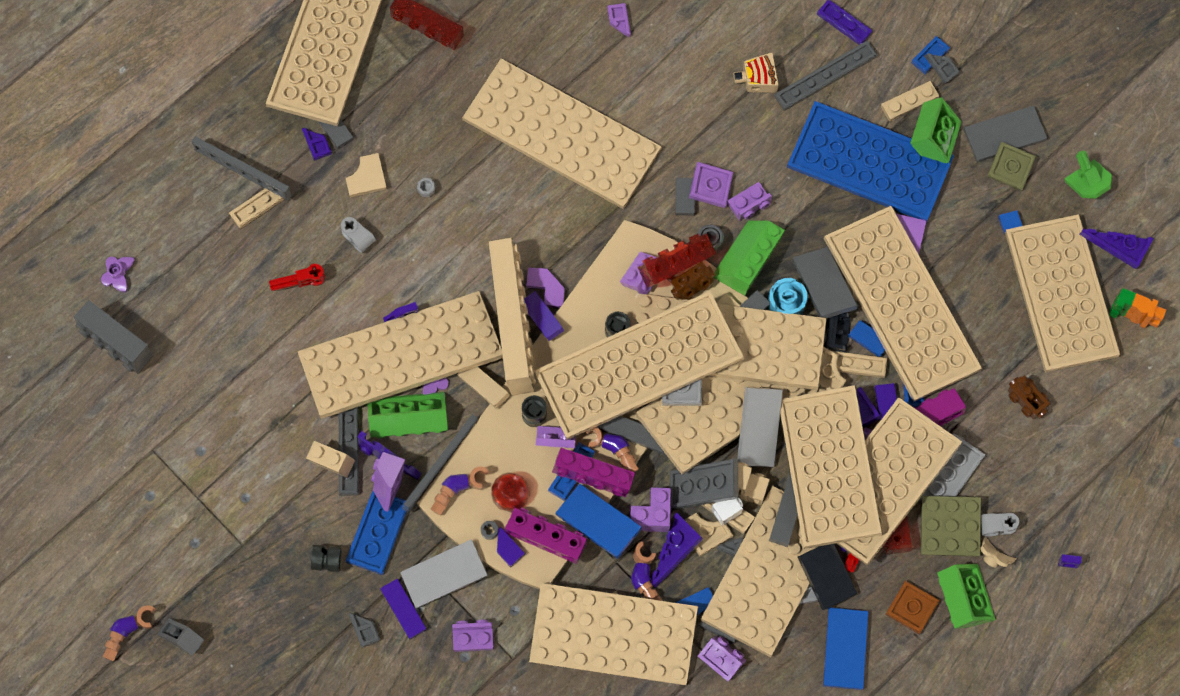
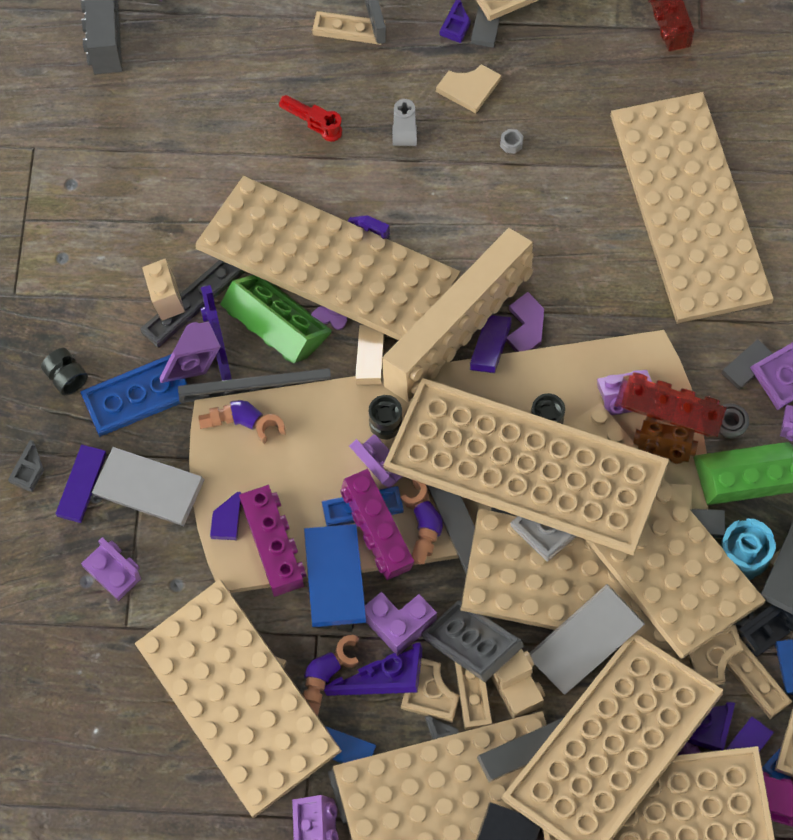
camera: 50 degrees right, 5 degrees down
(495, 528) = (228, 477): dark grey bush -> none
(510, 491) = (285, 469): clear red cylinder -> none
(727, 510) = (469, 688): white brick -> none

